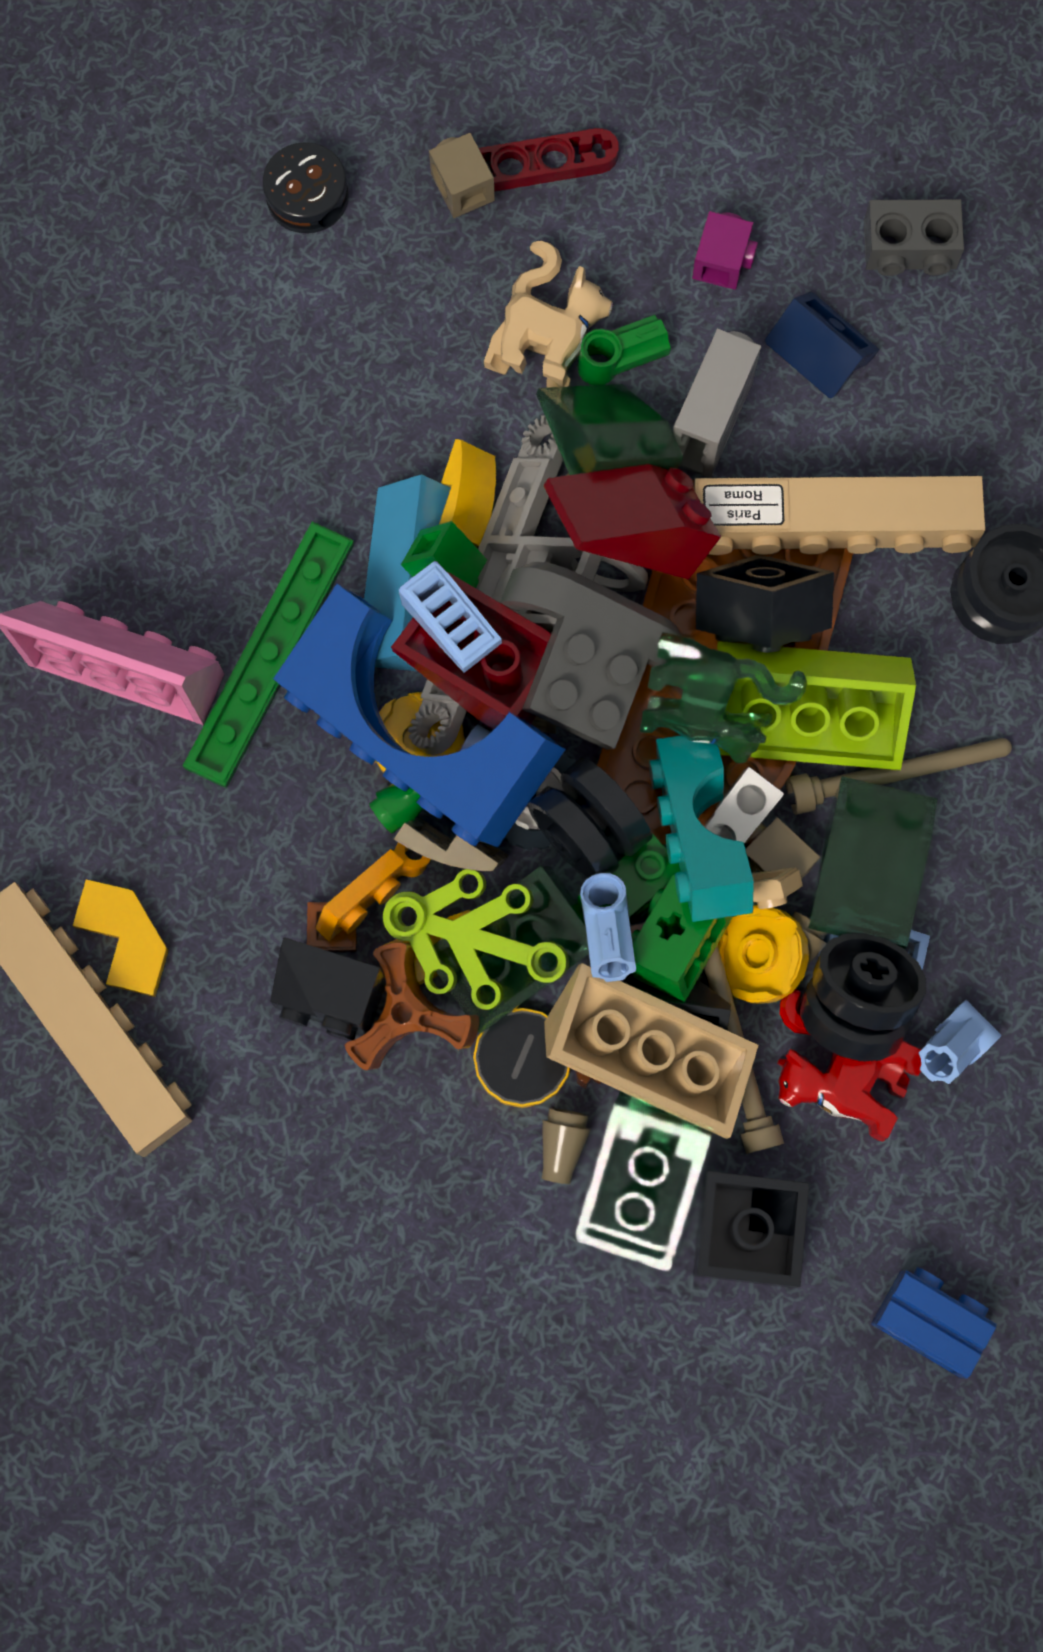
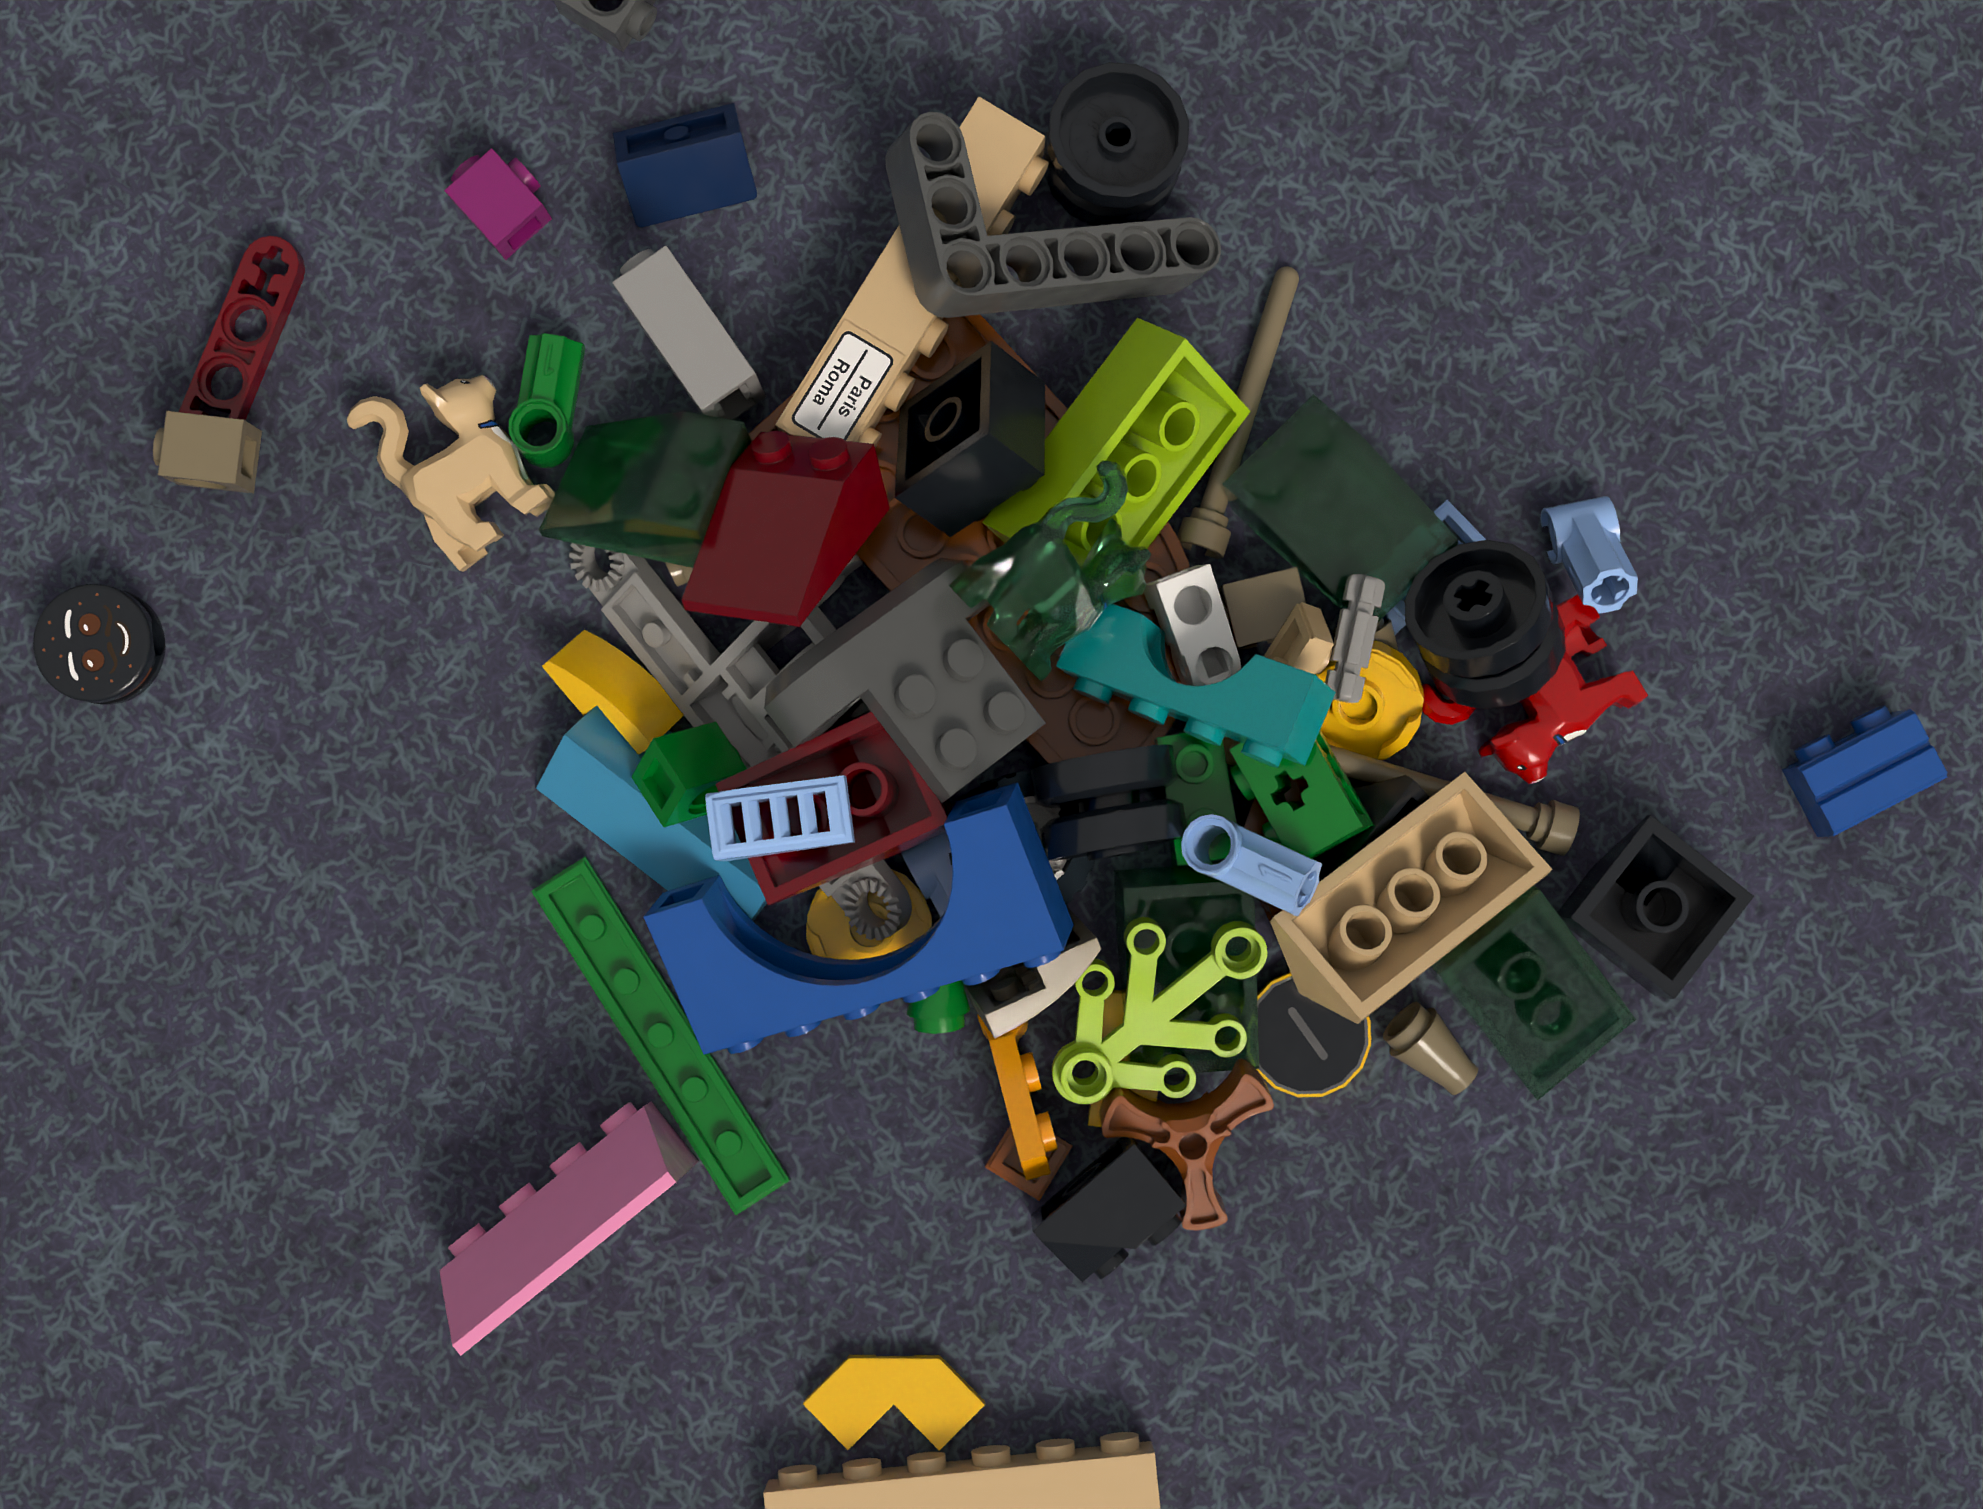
camera: 60 degrees left, 10 degrees up
(797, 915) = (1354, 637): none -> light grey axle
(907, 566) = (1035, 256): none -> dark grey beam

